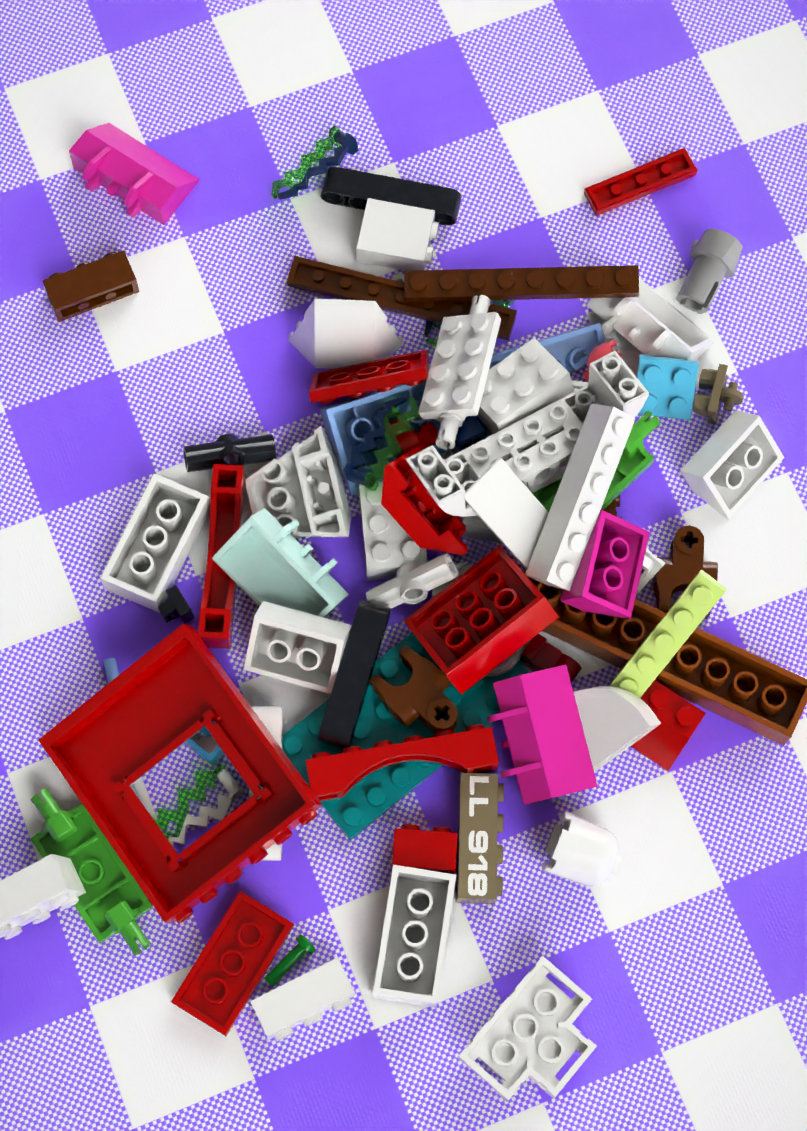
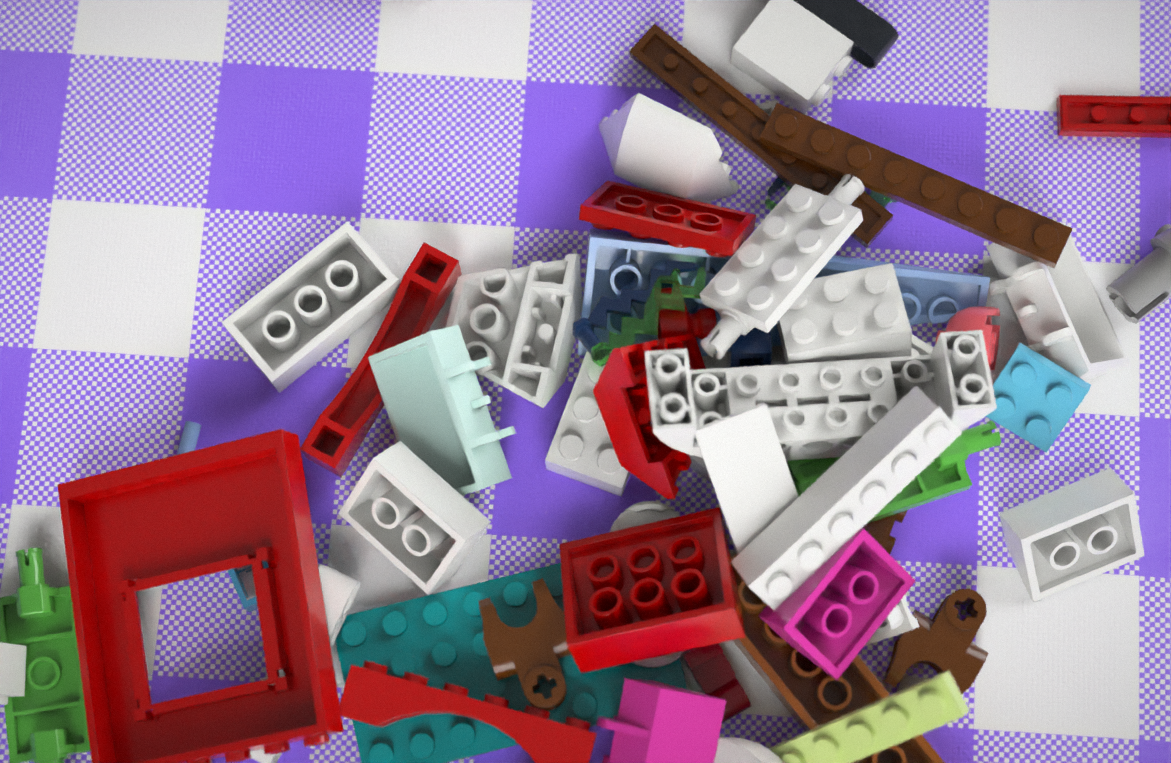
camera: 30 degrees right, 5 degrees up
(175, 607) = (300, 396): black tile -> none
(181, 815) = (183, 654): piece -> none
(229, 451) = (455, 235): black piece -> none
(354, 674) = (466, 583): black beam -> none
(414, 582) = (592, 503): white piece -> none
(716, 381) = (1104, 419): dark tan hips -> none

